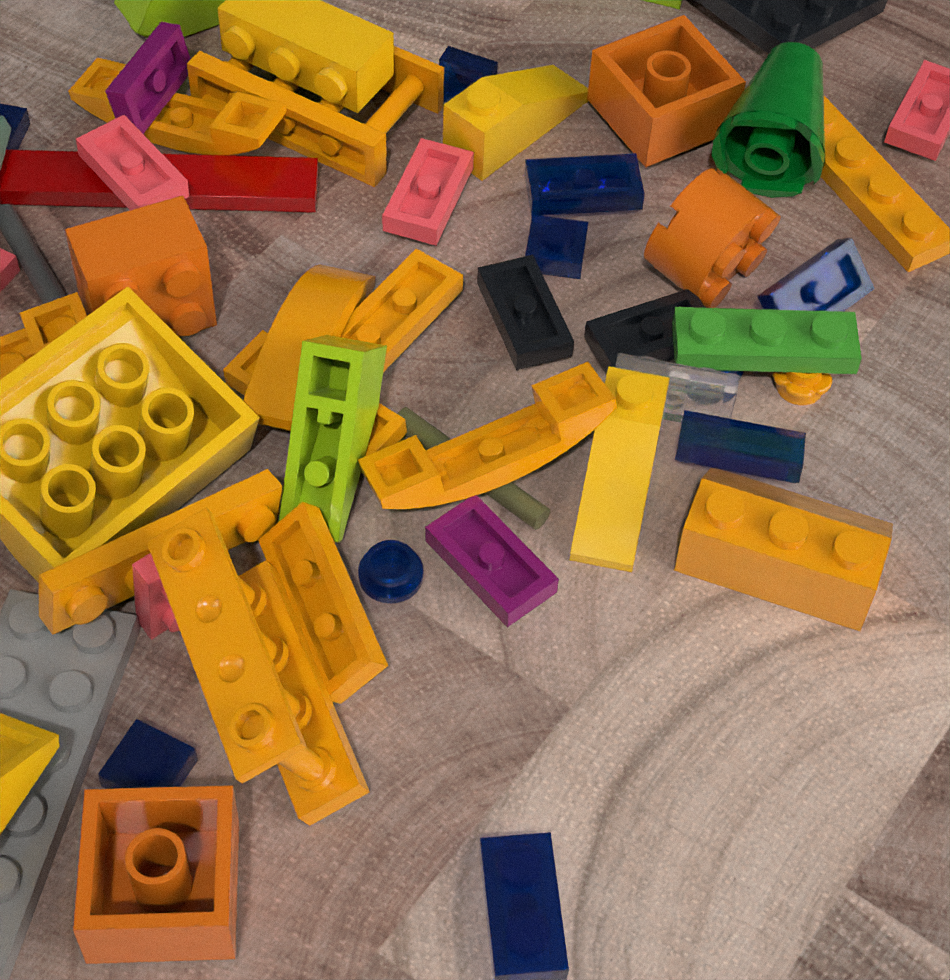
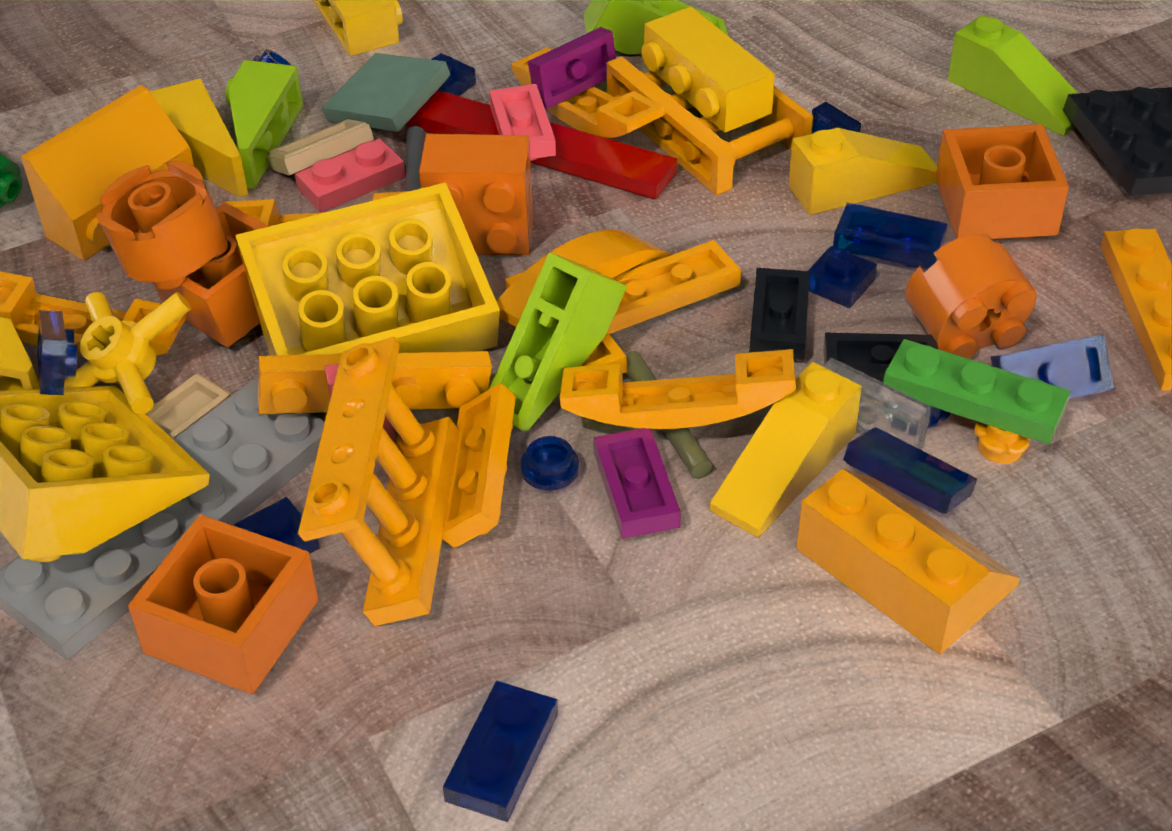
camera: 30 degrees right, 10 degrees down
(428, 191) = (752, 205): coral plate -> none
(777, 125) = (1083, 230): green cone -> none

